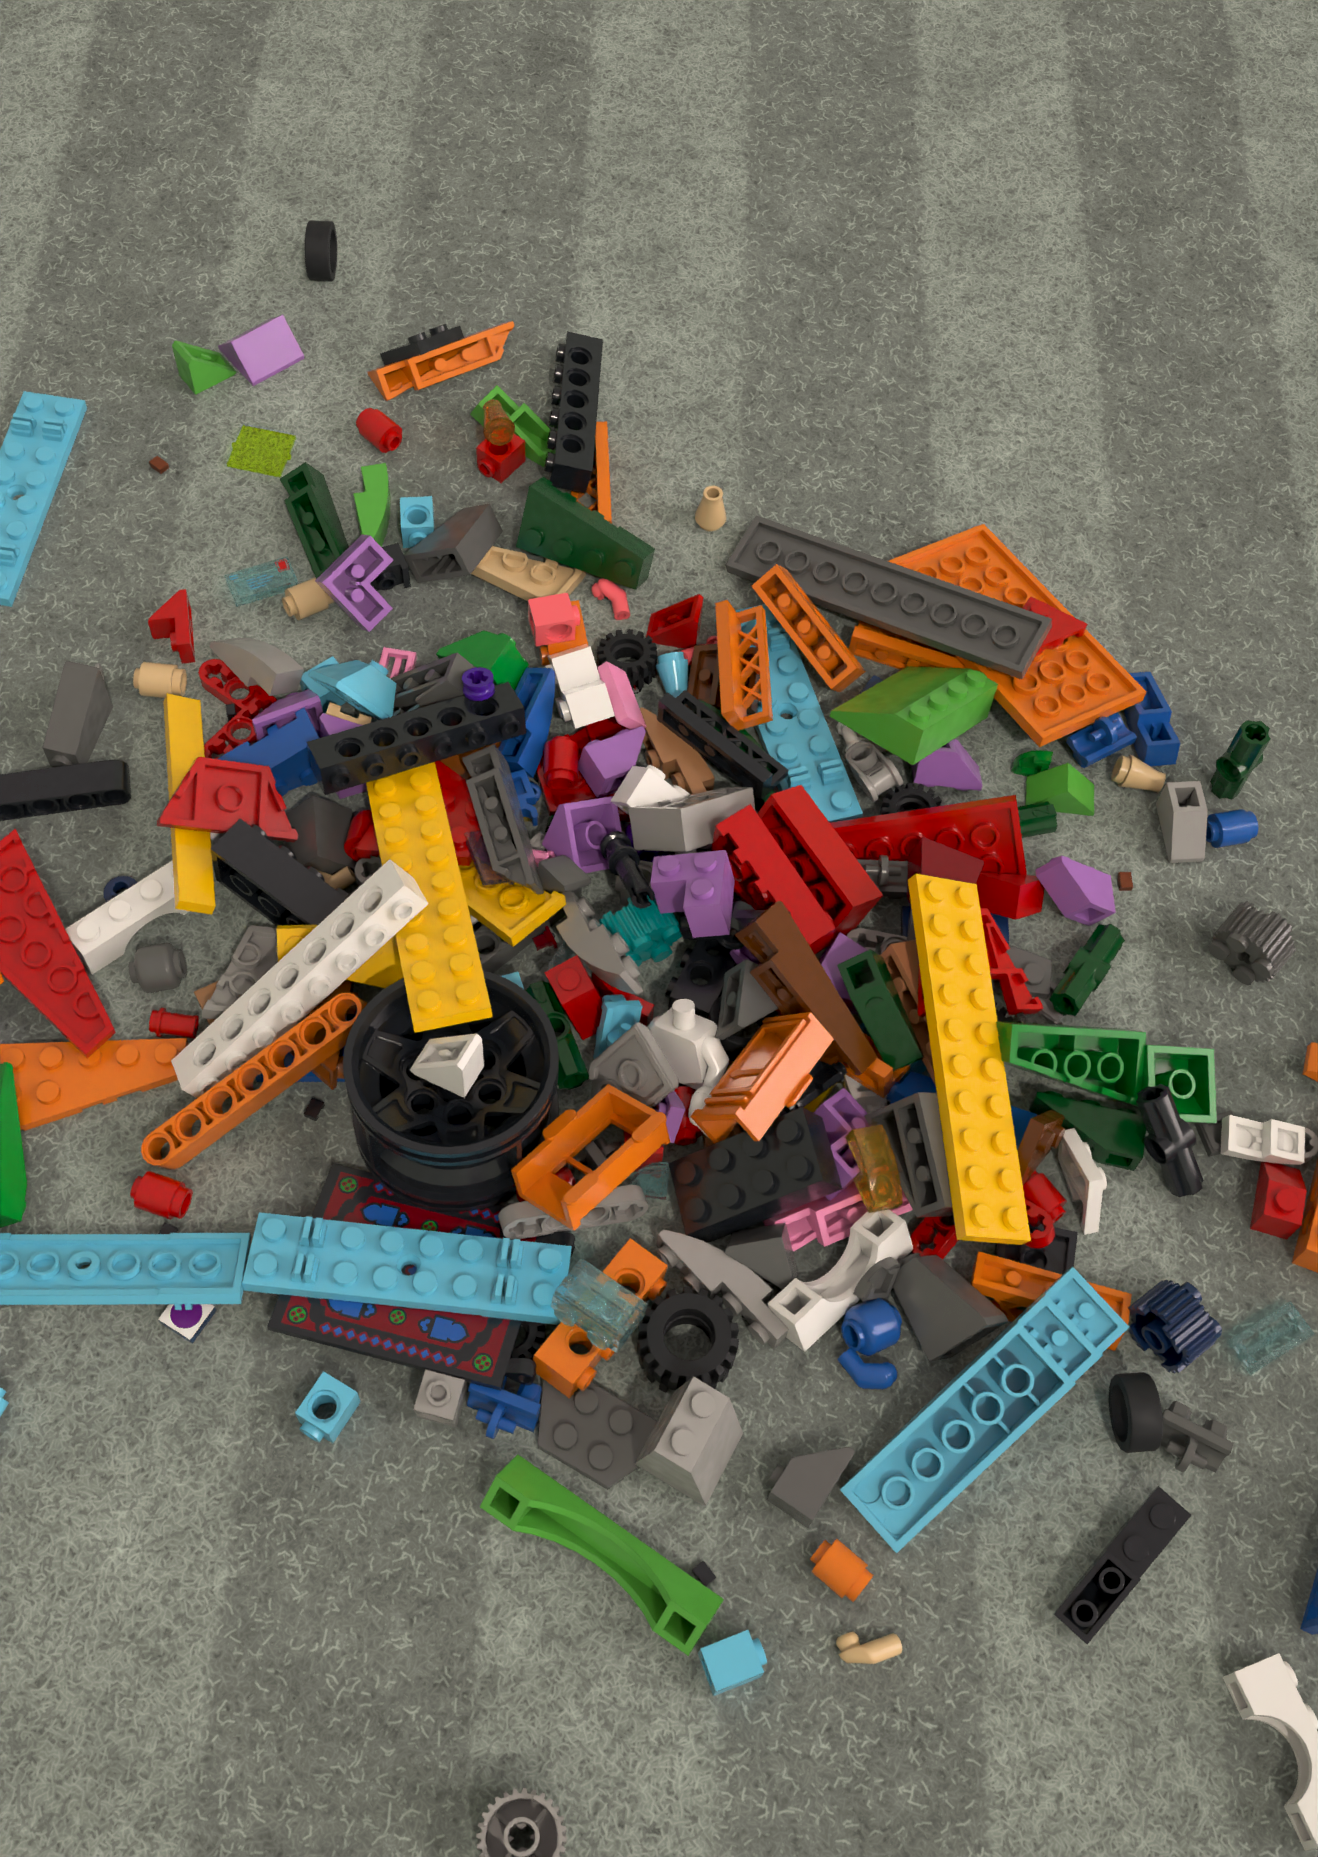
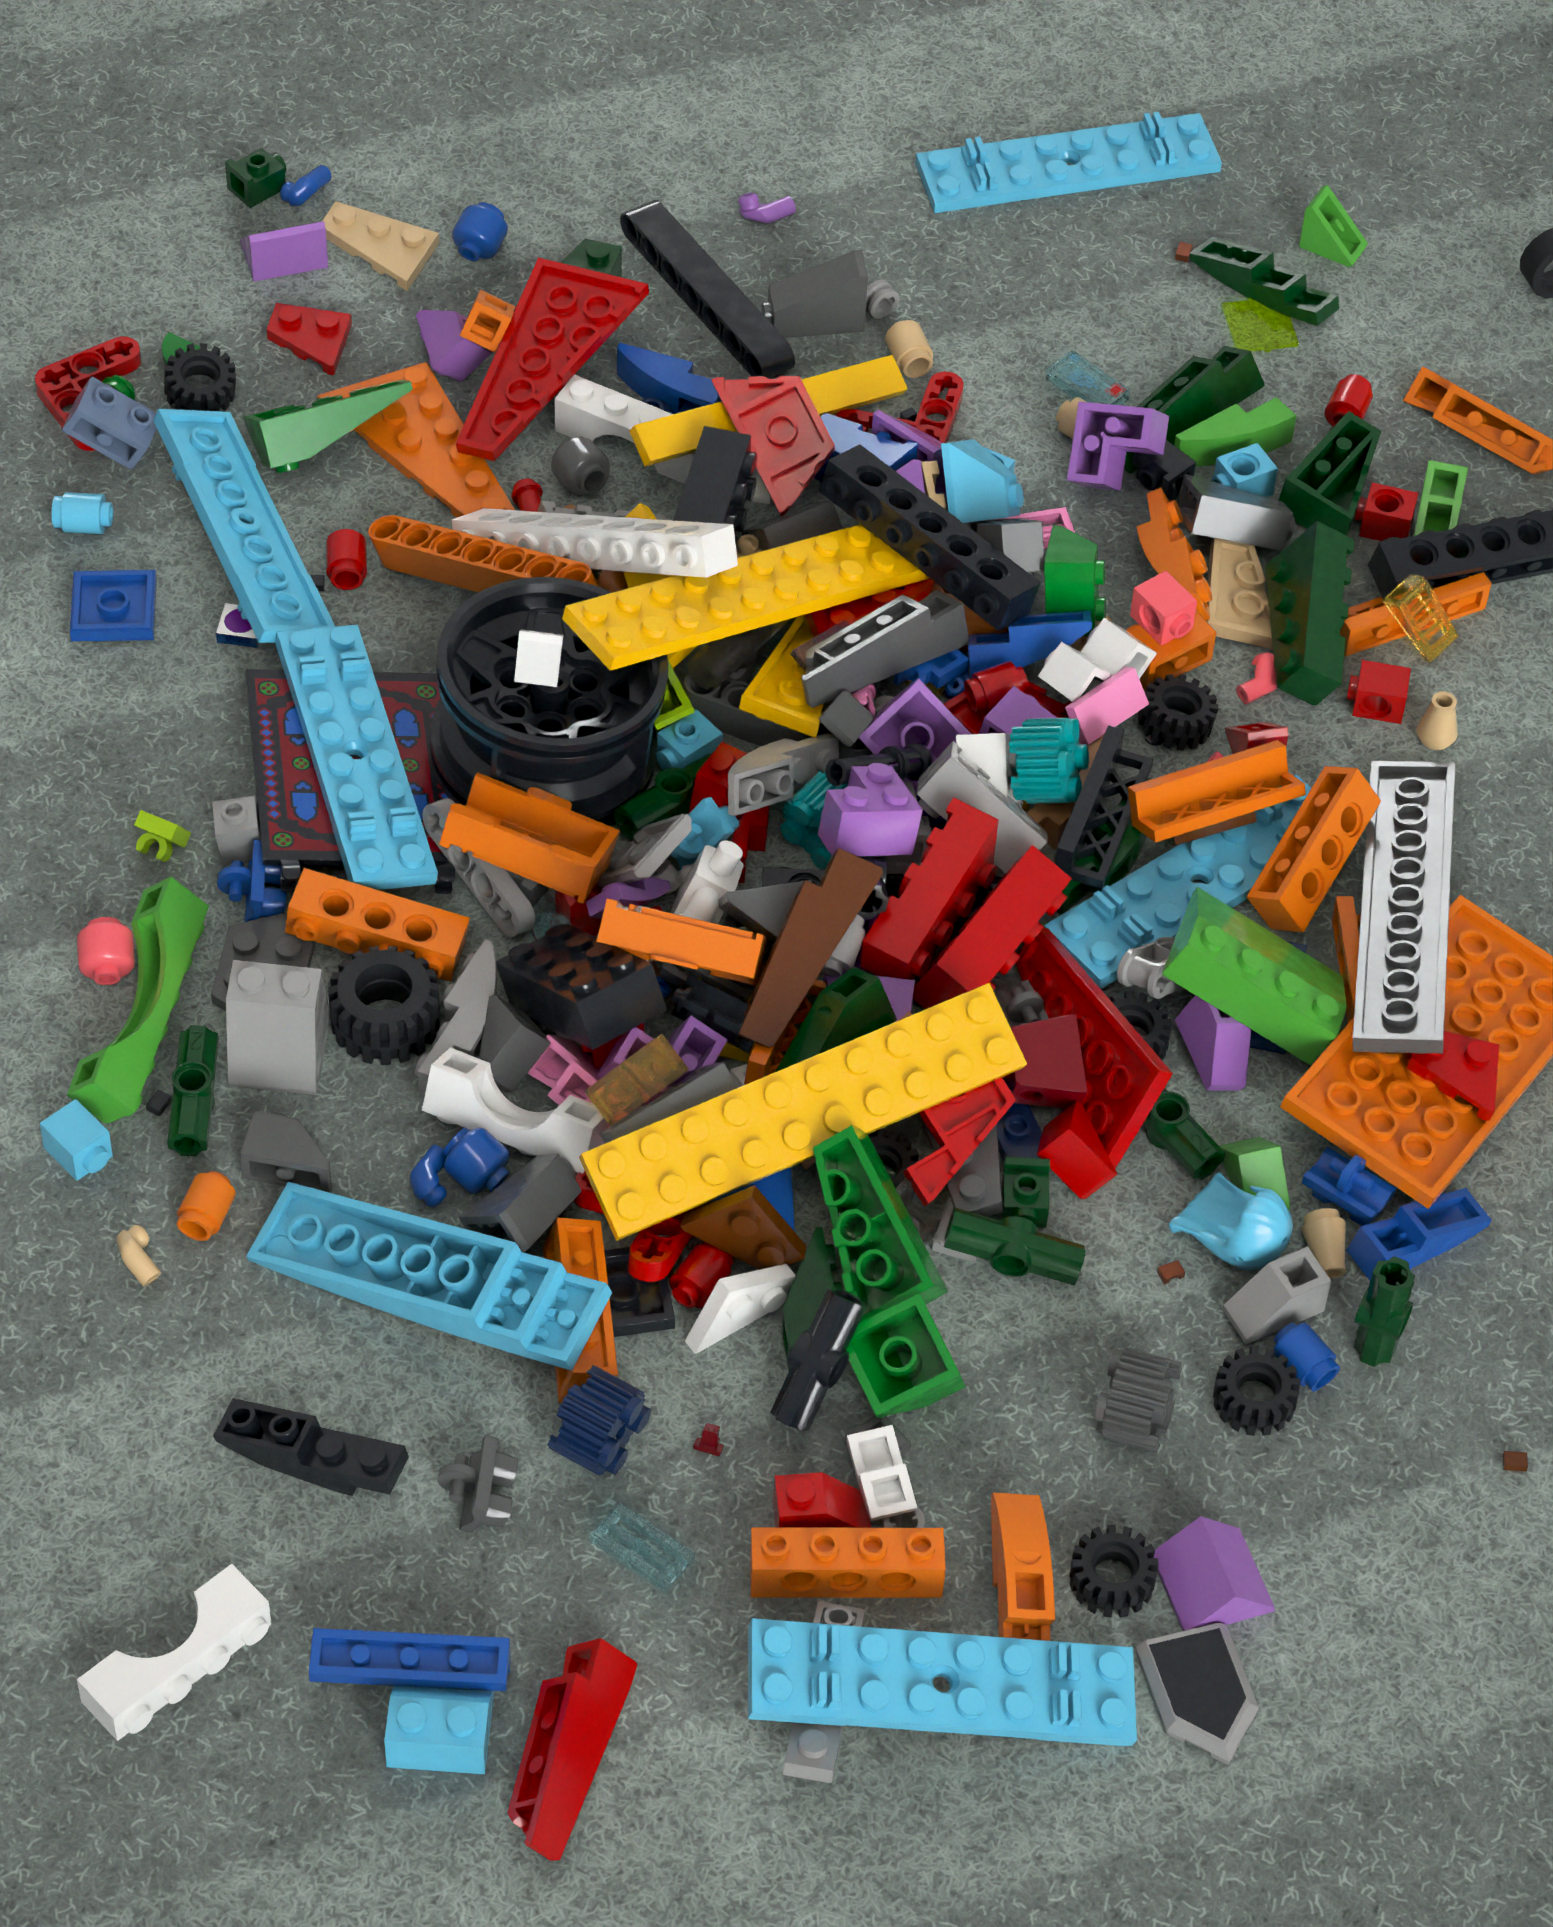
camera: 70 degrees right, 10 degrees down
(100, 862) = (664, 378): none -> blue slope
(108, 1421) = (113, 605): none -> blue plate
(175, 622) = (984, 336): red slope -> none
(215, 432) = (1255, 276): none -> dark green slope
(259, 664) = (970, 408): light grey slope -> none
(263, 350) = (1392, 273): slope -> none
(327, 1390) = (193, 752): medium azure brick -> none
(405, 1467) = (159, 831): none -> lime tile
(422, 344) = (1485, 389): black wing -> none
(456, 469) = (1332, 475): none -> dark green wedge
(478, 684) = (1015, 553): dark purple bush -> none
(492, 601) = (1170, 550): none -> orange slope
(497, 424) = (1406, 482): clear orange cone -> none
(527, 1565) = (104, 950): none -> coral head
(598, 1306) = (373, 895): clear light blue brick -> none
(617, 473) = (1397, 604): none -> clear yellow slope
(666, 530) = (1379, 691): none -> red brick
(673, 672) = (1184, 752): medium azure cone -> none
(675, 752) = (1048, 760): none -> teal brick
(741, 1549) = (193, 1091): none -> dark green piece
(878, 1280) = (523, 1140): dark grey tile -> none
(1031, 762) = (1277, 1130): green tile -> none
(1039, 939) = (1026, 1189): none -> dark green brick
(1078, 890) = (1112, 1205): medium lavender slope -> none
(1111, 820) = (1236, 1224): none -> medium azure piece
(1135, 1412) = (481, 1406): black tyre -> none
(1187, 1252) = (709, 1441): none -> dark red piece
(1255, 854) = (1256, 1413): none -> black tyre

